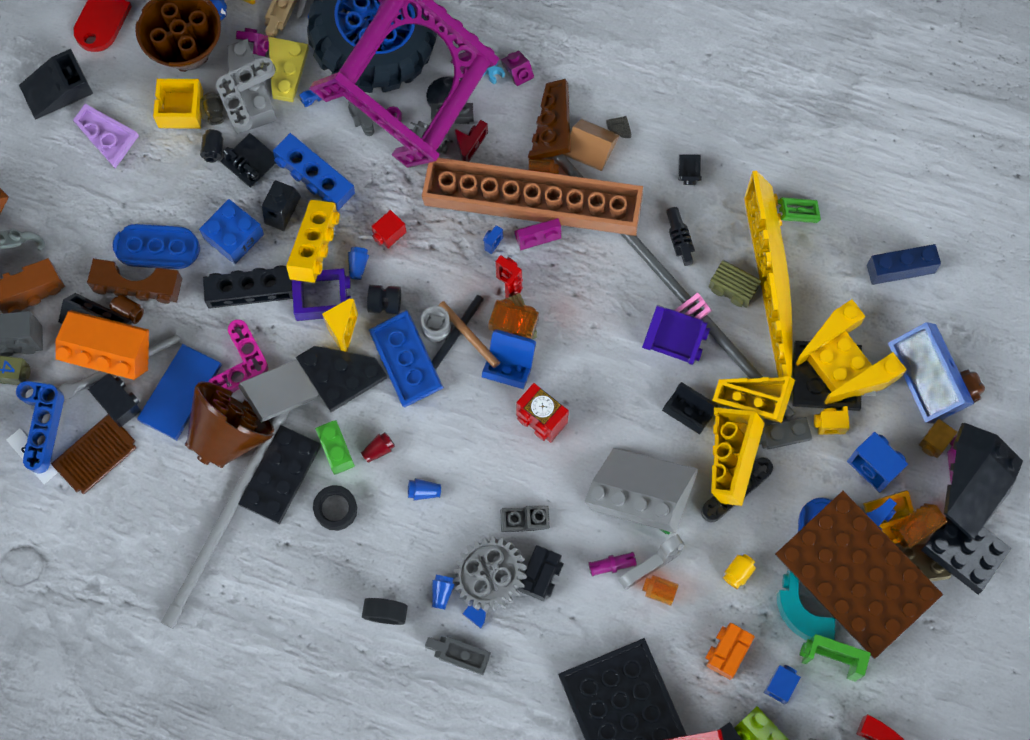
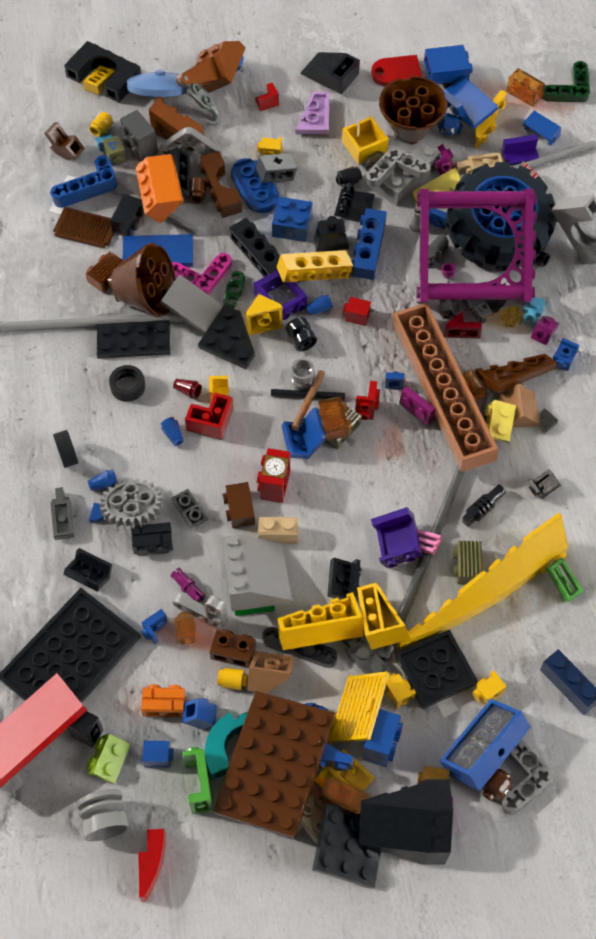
camera: 60 degrees right, 10 degrees down
(48, 170) = (268, 100): none -> red panel
(57, 285) = (192, 139): none -> light grey beam
(121, 204) = (270, 146): none -> yellow brick
(153, 211) = (276, 168): none -> dark grey brick
(174, 460) = (102, 270): none -> dark orange brick
(277, 329) = (234, 283): none -> dark green piece
(312, 110) = (414, 221): none -> light grey cone
(335, 447) = (171, 359): bright green brick -> none
(401, 418) = (219, 385): none -> yellow panel
(405, 358) = (265, 371): blue tile -> none
(437, 444) = (210, 420): none -> red brick
(486, 89) = (511, 316): none -> clear yellow gear
(542, 656) = (88, 570): none -> black bracket
(550, 466) = (239, 504): none -> reddish brown brick
(552, 64) = (565, 354): none -> blue brick
(599, 166) = (500, 420): none -> light yellow bracket
(602, 442) = (279, 529): none -> tan brick
(639, 615) = (154, 623): none -> blue bracket
(707, 554) = (233, 648): none -> reddish brown brick
(751, 530) = (268, 671): none -> medium nougat slope
(763, 620) = (199, 713): none -> blue brick
(838, 464) = (358, 707): none -> yellow piece
(842, 362) = (451, 668): yellow wedge -> none
(872, 339) = (489, 688): none -> yellow brick
(971, 349) = (531, 773): none -> light grey beam

